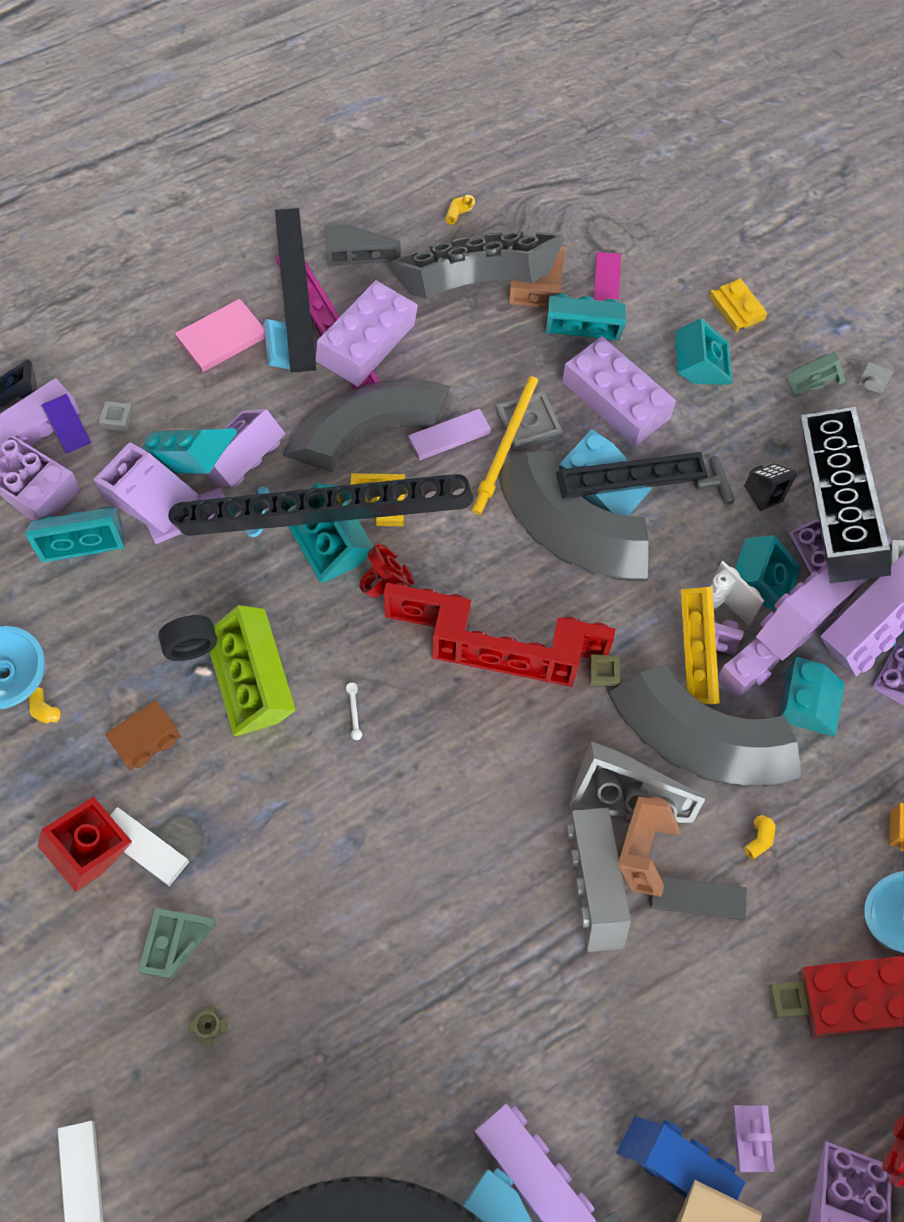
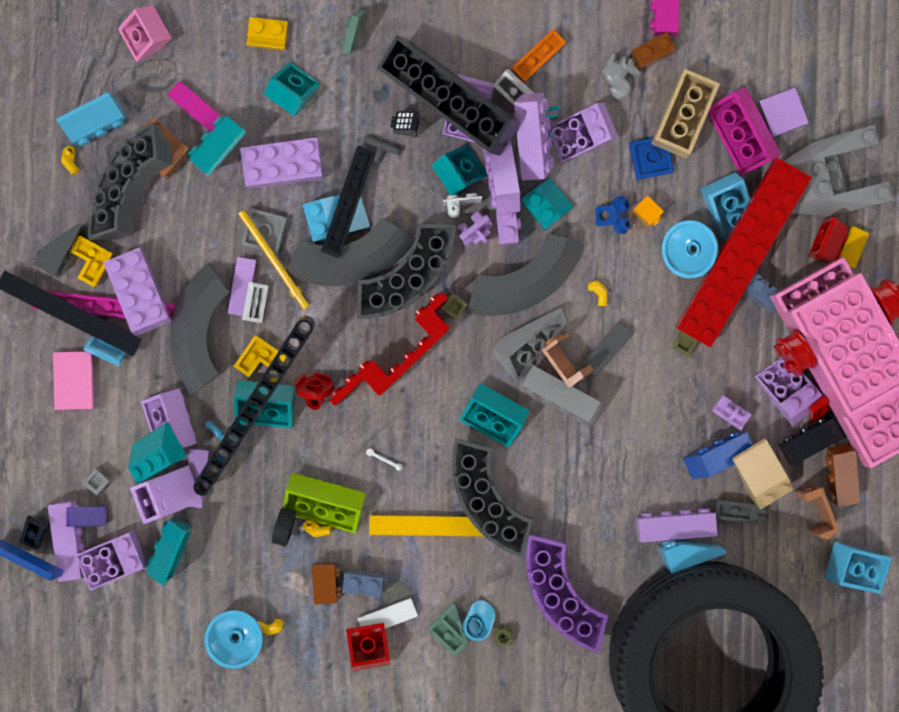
camera: 50 degrees left, 25 degrees up
(171, 782) = (359, 581): none -> sand blue piece
(207, 684) = (316, 530): none -> yellow arm
(210, 972) = (479, 620): none -> medium azure cap
(303, 819) = (422, 525): none -> yellow tile
(313, 1064) = (556, 596): none -> medium lavender brick
(375, 268) = (94, 257): none -> yellow plate
(384, 863) = (482, 501): none -> dark grey brick
(421, 462) = (248, 301): none -> white tile
(506, 806) = (494, 415): none -> teal slope
(518, 197) = (92, 119): none -> medium azure slope
(600, 592) = (411, 277): none -> dark grey brick
(643, 199) = (144, 32): none -> bright pink slope
(700, 644) = (479, 247): yellow plate -> none
(874, 793) = (618, 215): none -> blue bracket

